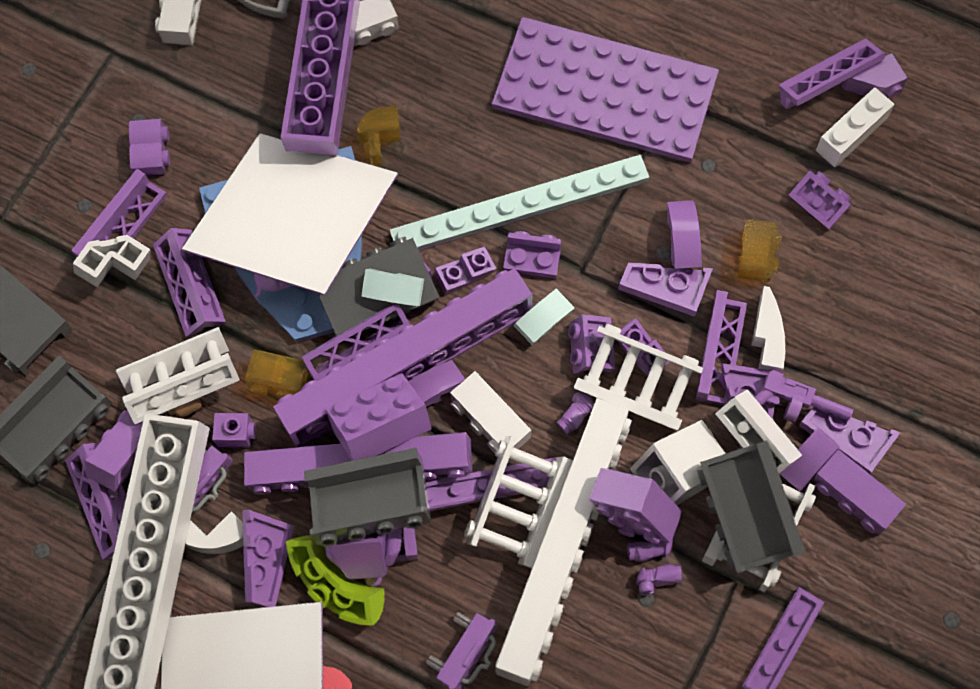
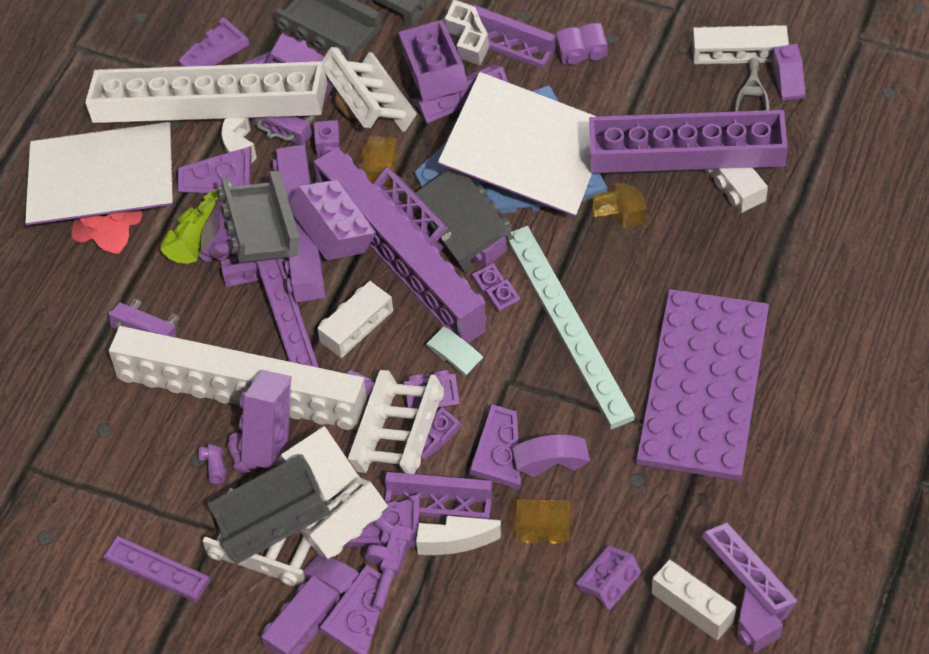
camera: 85 degrees right, 15 degrees down
(60, 558) = (216, 46): none -> medium lavender wing
(151, 298) = (433, 60): none -> medium lavender brick
(392, 287) = (456, 219): light aqua slope -> none
(437, 382) = (381, 273): medium lavender slope -> none
(532, 254) = (515, 338): medium lavender bracket -> none
(546, 497) = (311, 319): white fence -> none

